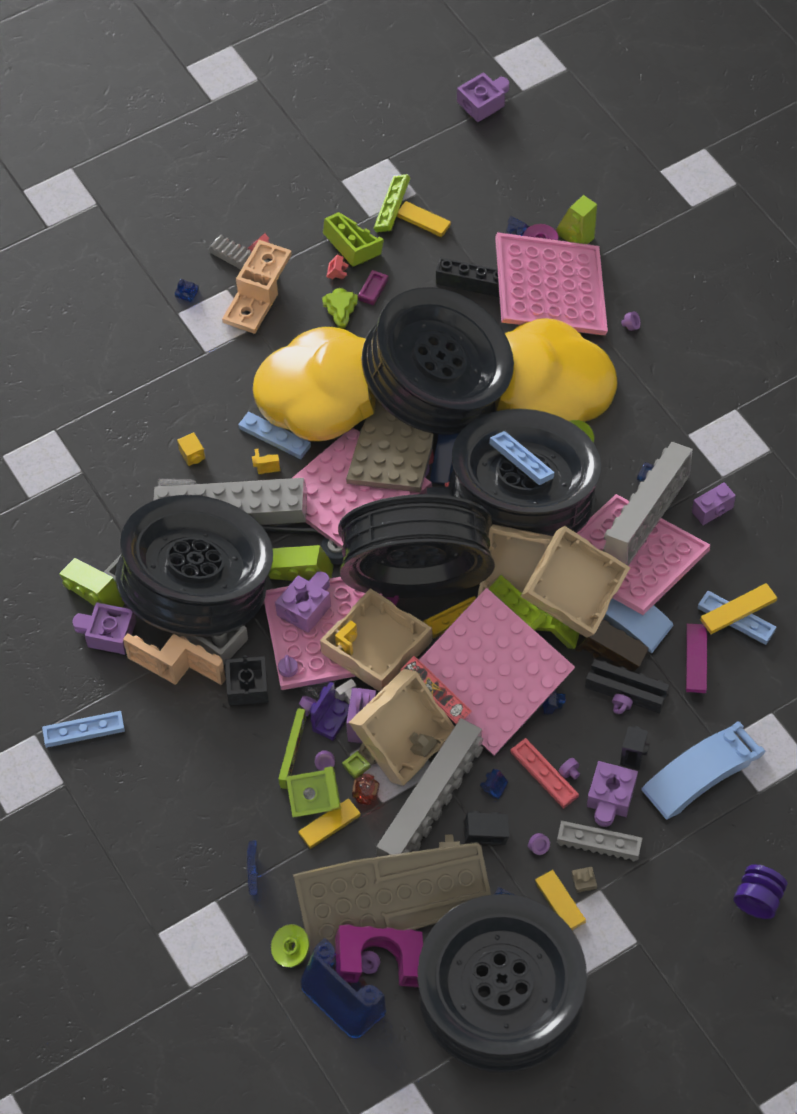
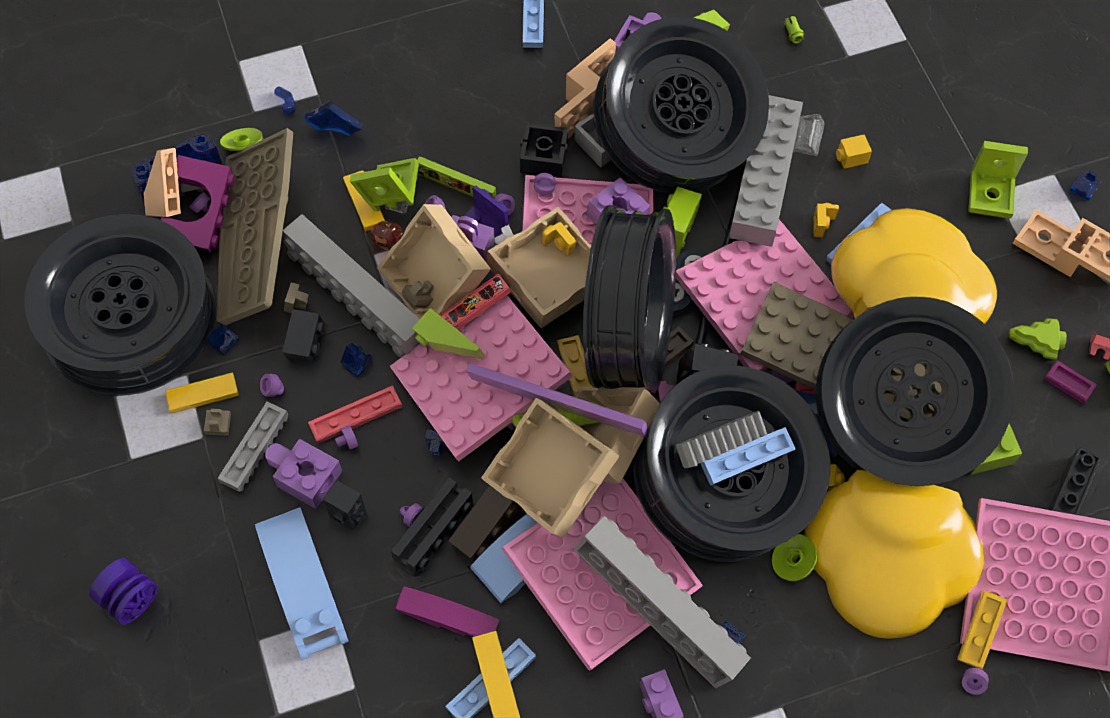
camera: 100 degrees right, 5 degrees up
(63, 513) = (795, 33): none -> lime pin
(198, 347) = (995, 173): none -> lime bracket
(229, 921) = (287, 96): none -> clear blue arm
(387, 980) = (162, 188): none -> light nougat slope
(472, 696) = (443, 336): none -> lime slope
(518, 471) = (721, 439): none -> light grey gear
(518, 587) = (558, 400): none -> medium lavender tile
(595, 317) = (982, 629): none -> yellow tile

